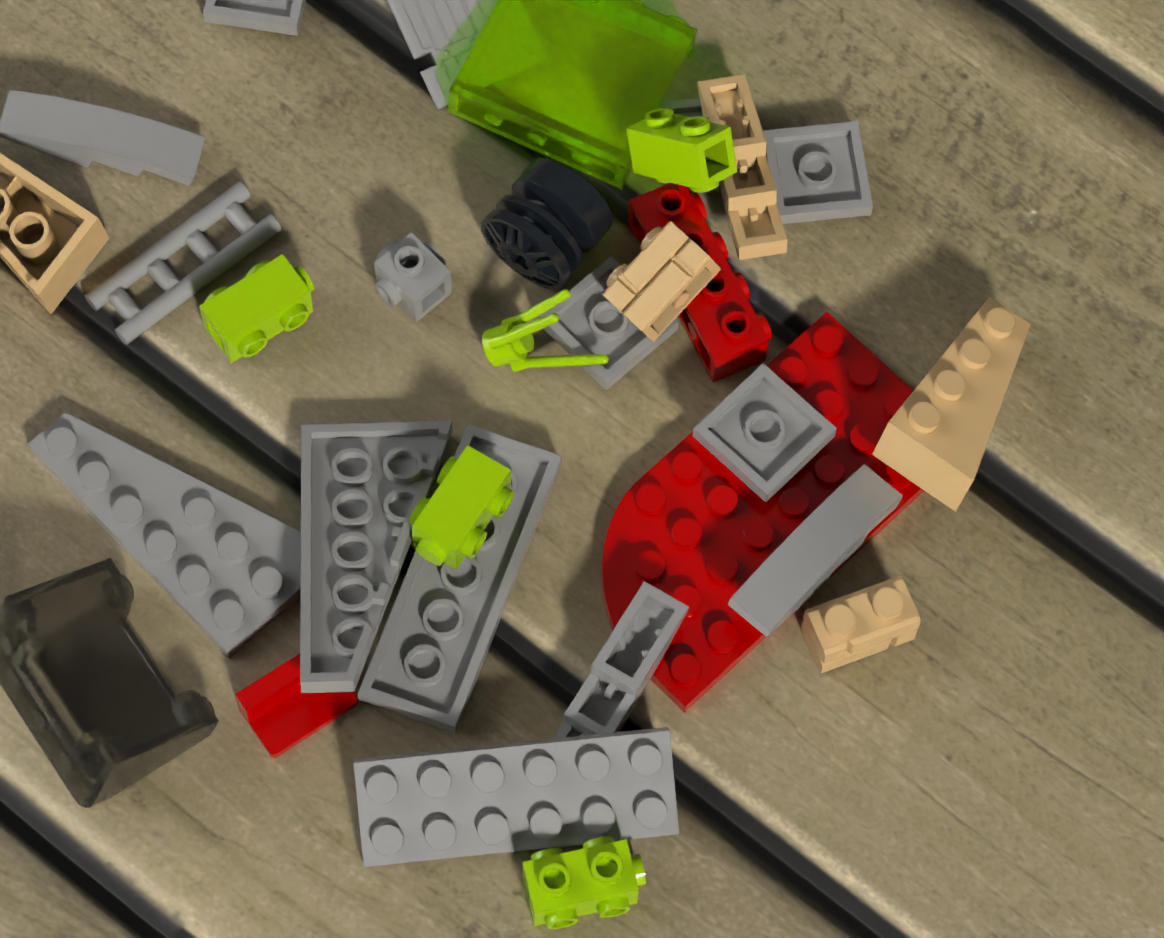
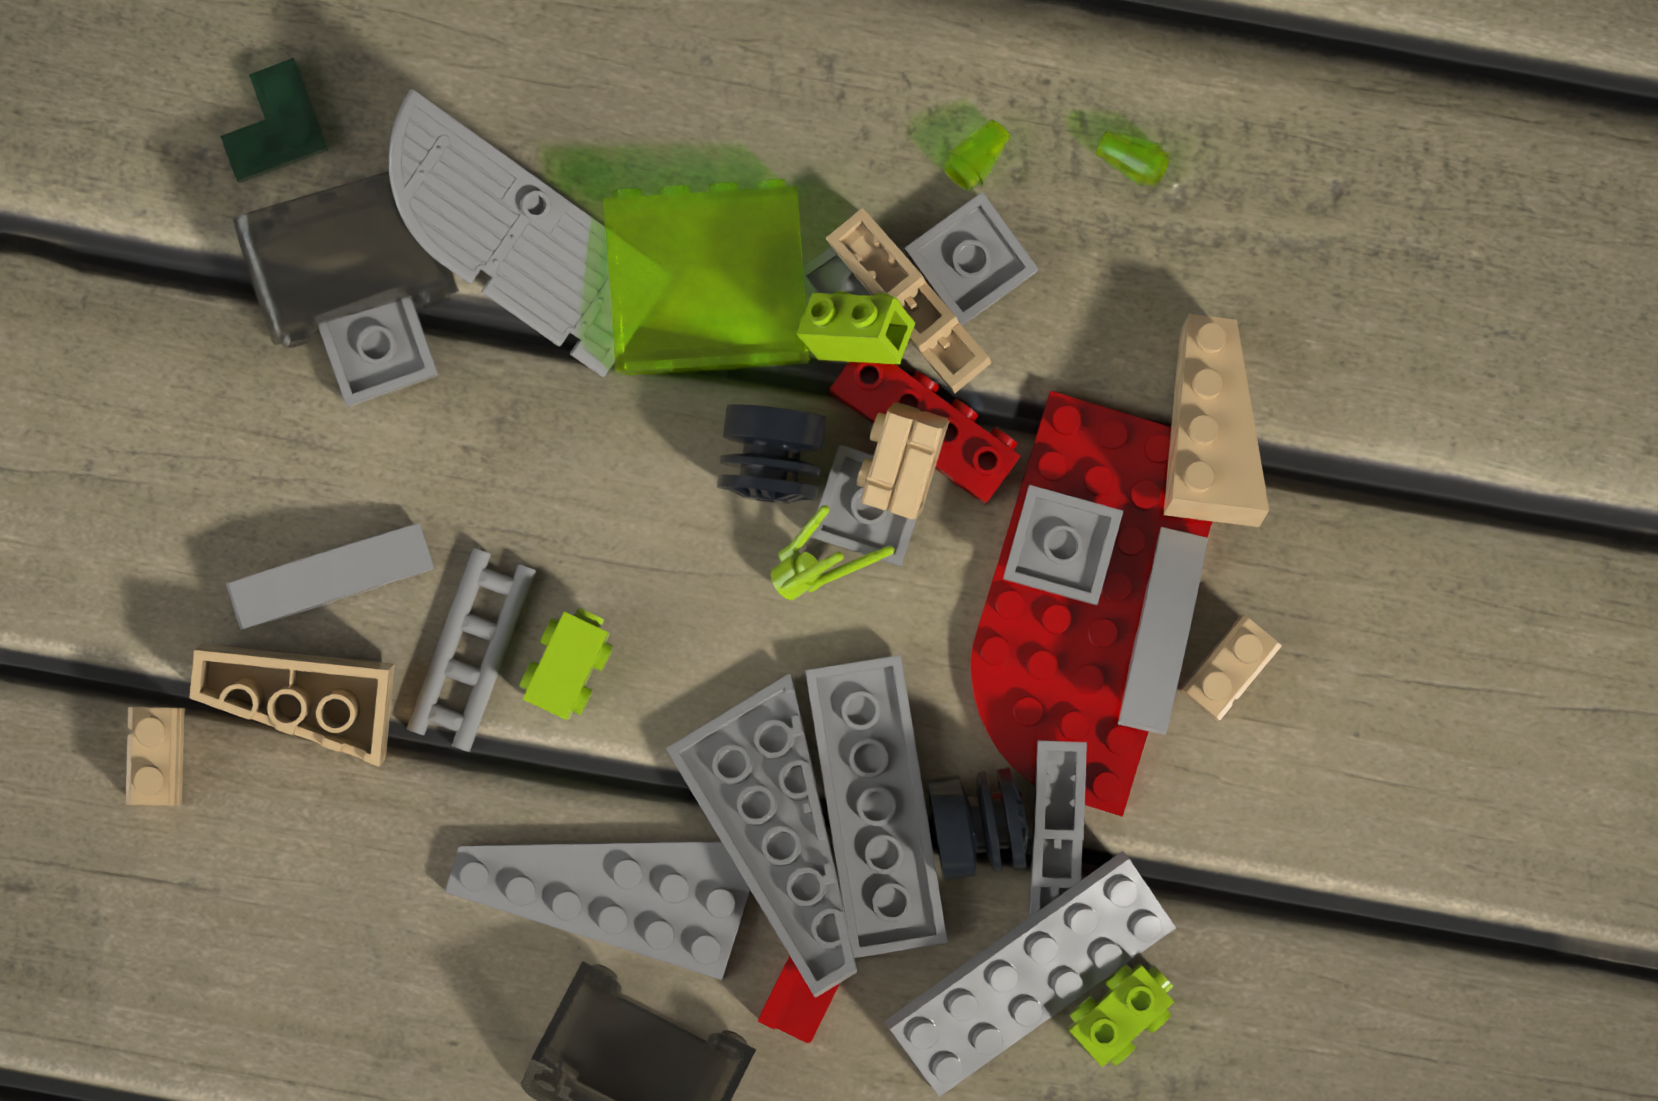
camera: 25 degrees left, 20 degrees up
(412, 276) = (699, 562): light grey brick -> none
(456, 514) = (851, 775): lime brick -> none
(544, 628) = (977, 823): none -> black wheel
(868, 94) = (975, 156): none -> clear neon green cone
(1011, 166) = (1134, 157): none -> clear neon green cone

